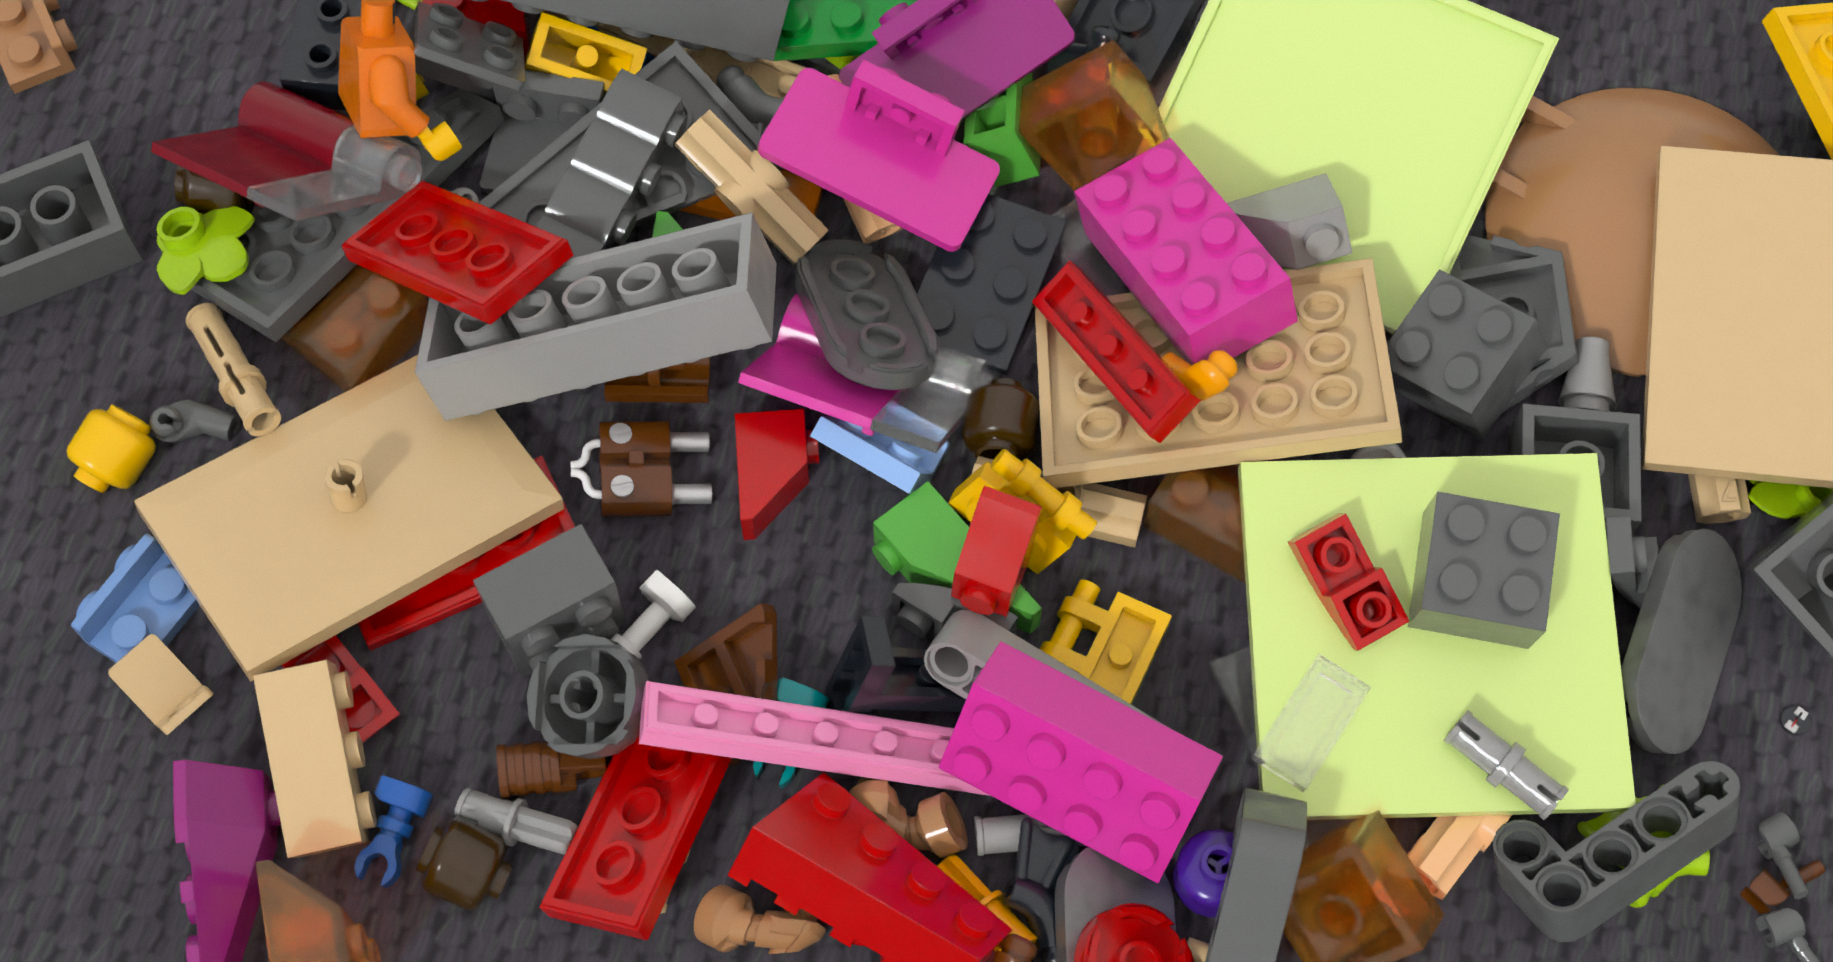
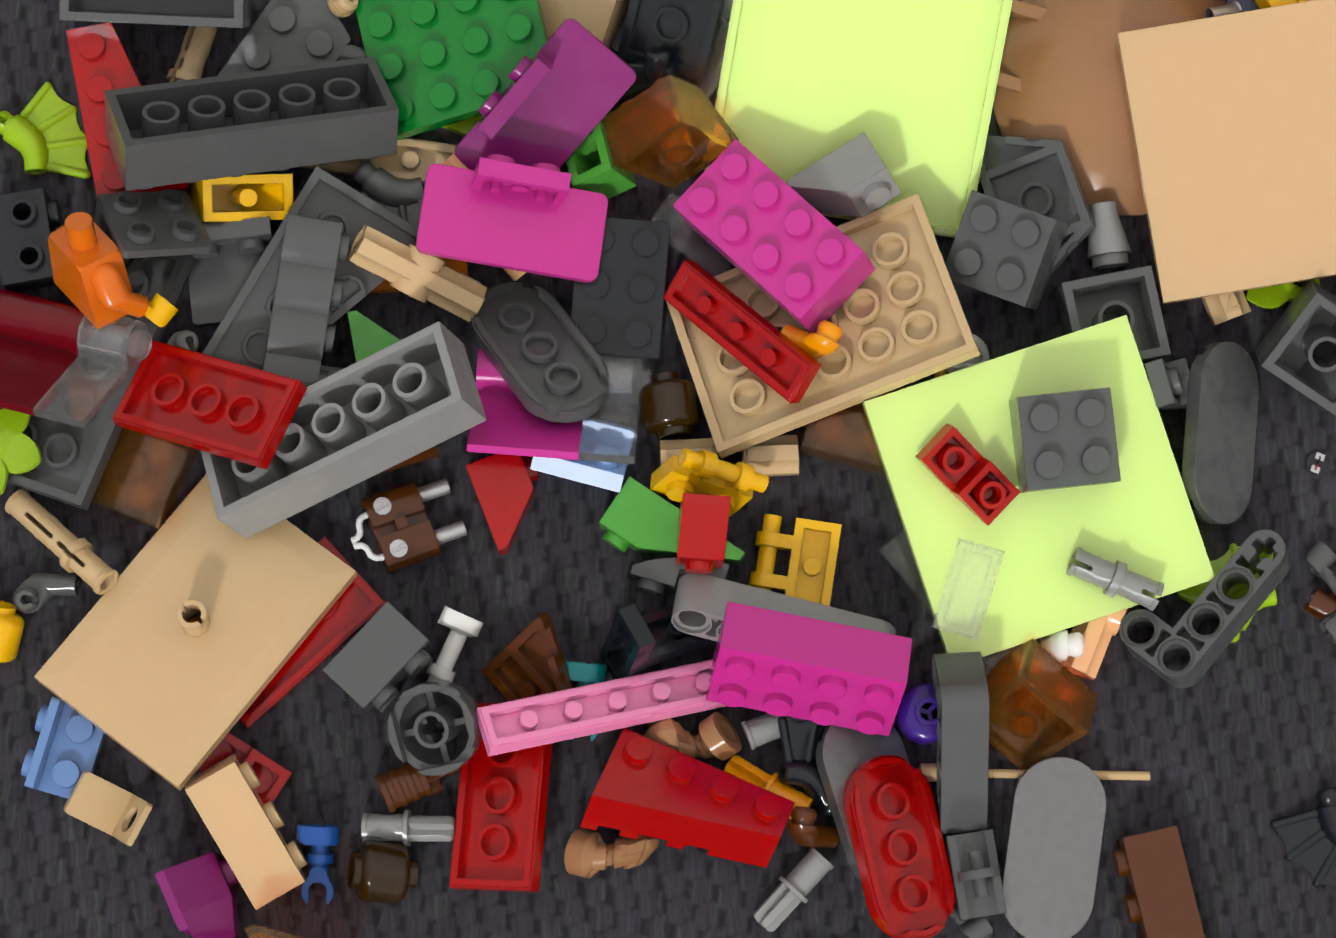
camera: 20 degrees left, 15 degrees up
(1418, 834) = (1063, 644): none -> white arm

